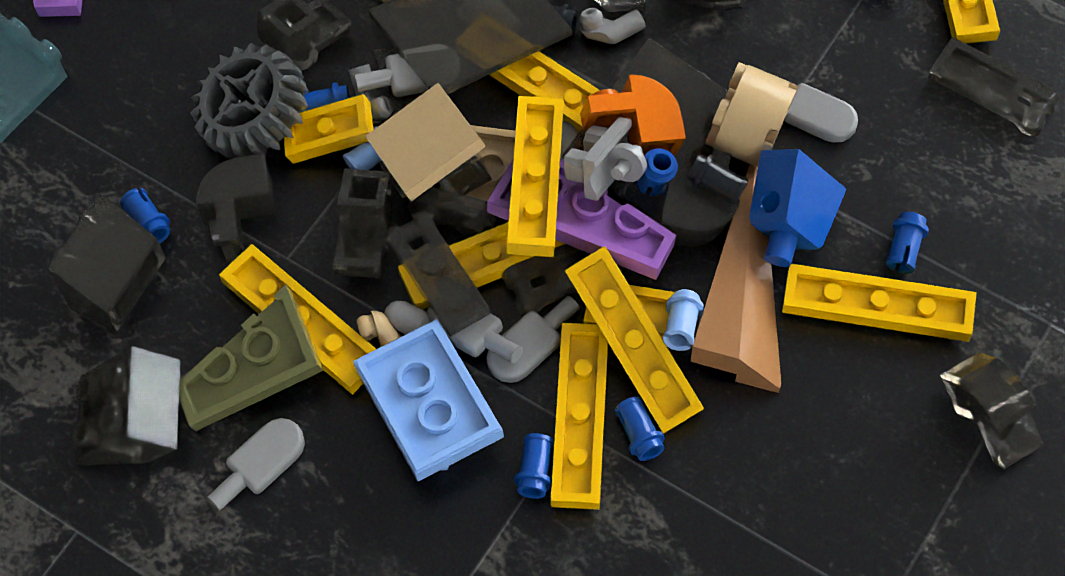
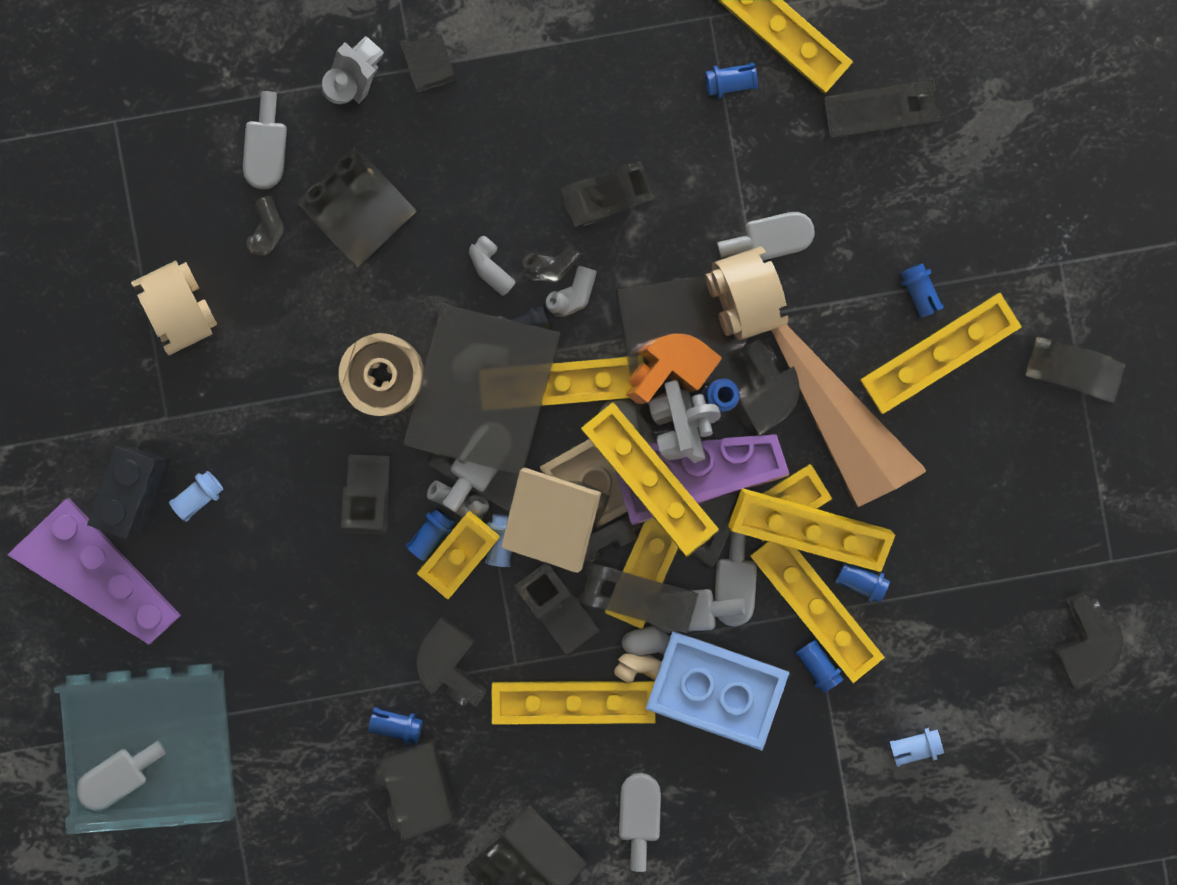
camera: 50 degrees left, 25 degrees up
(256, 363) = (578, 764): olive wing -> none
(263, 78) = (384, 615): dark grey gear -> none
(684, 311) = (832, 490): light blue pin -> none
(717, 179) = (771, 371): black pin -> none
(793, 203) = (832, 339): blue torso -> none

